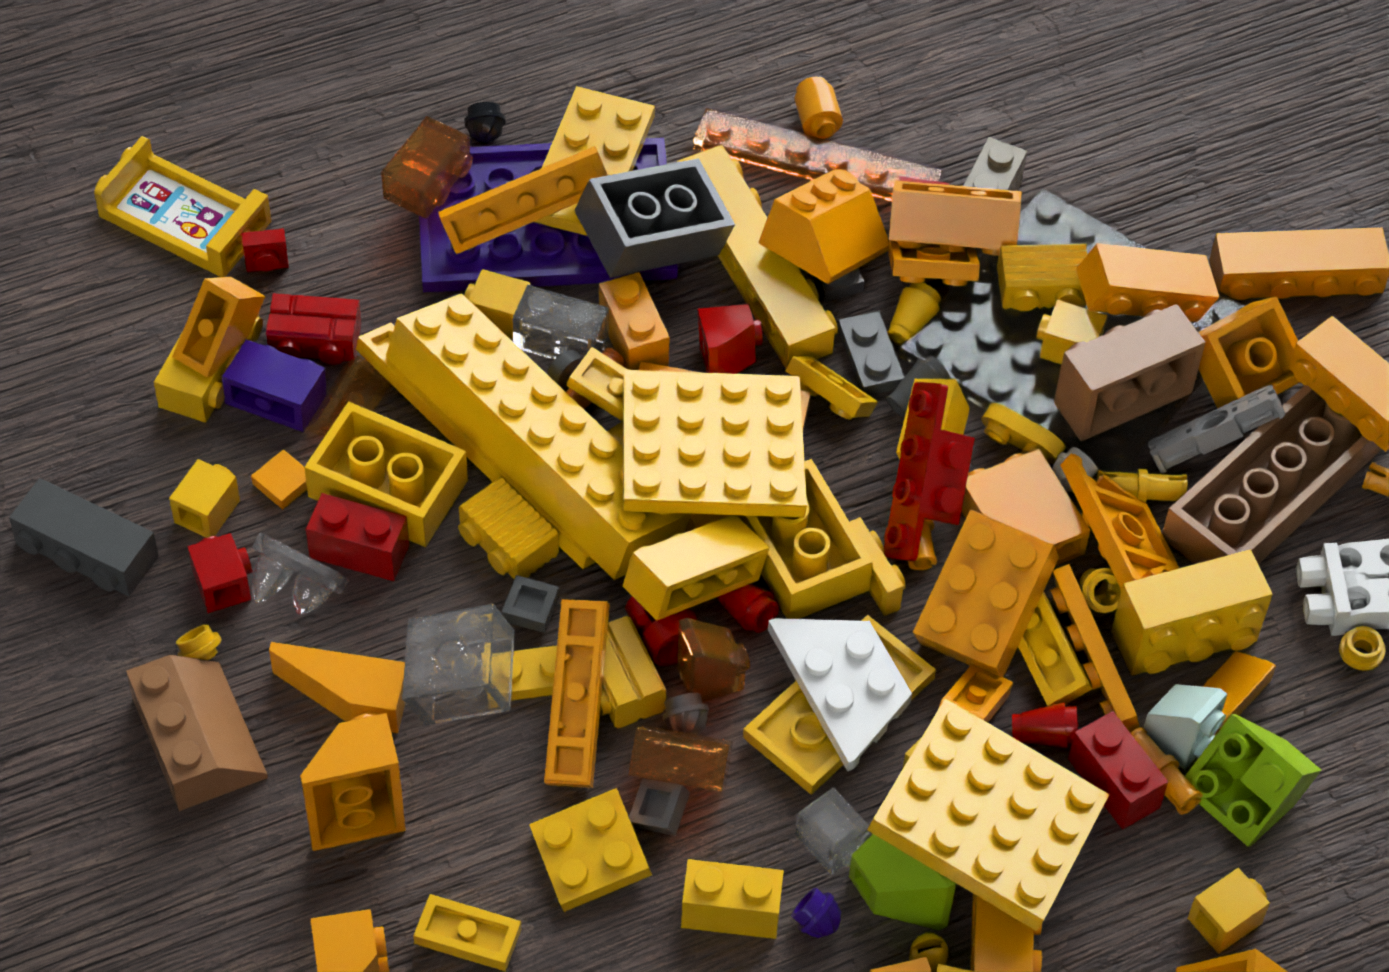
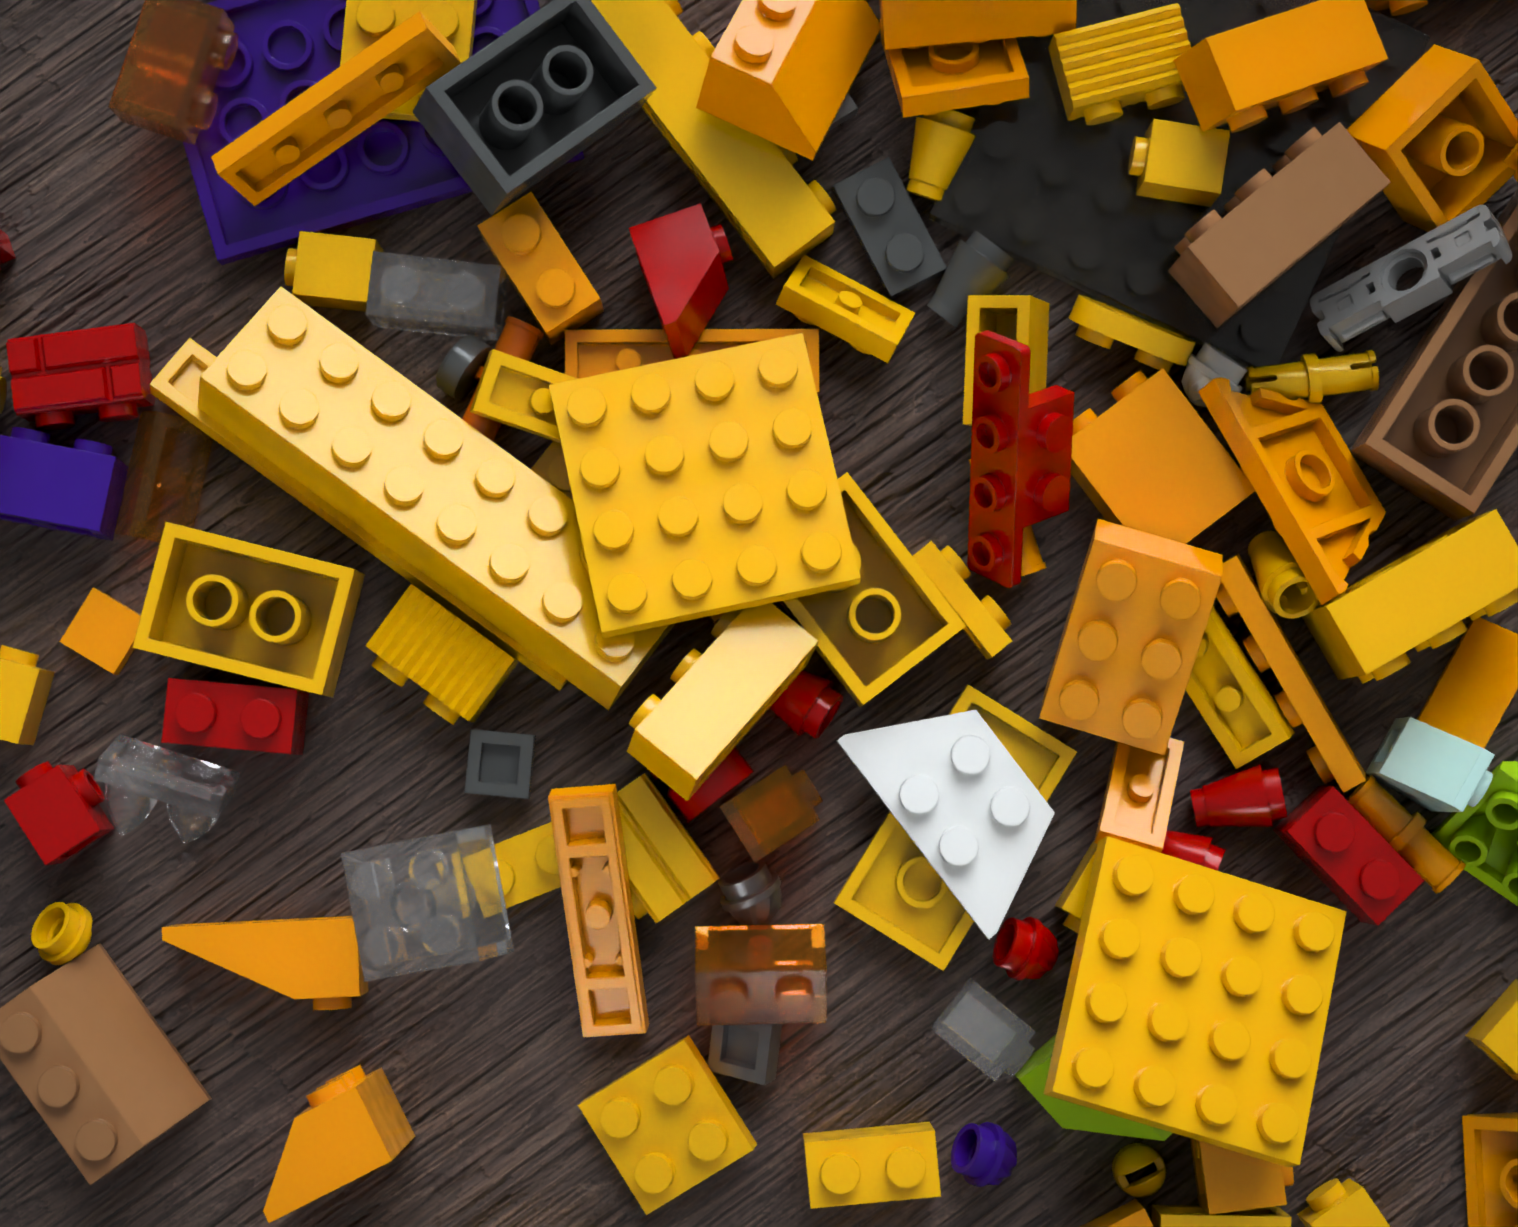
camera: 15 degrees left, 30 degrees up
(873, 787) = (1025, 948): none -> red plate

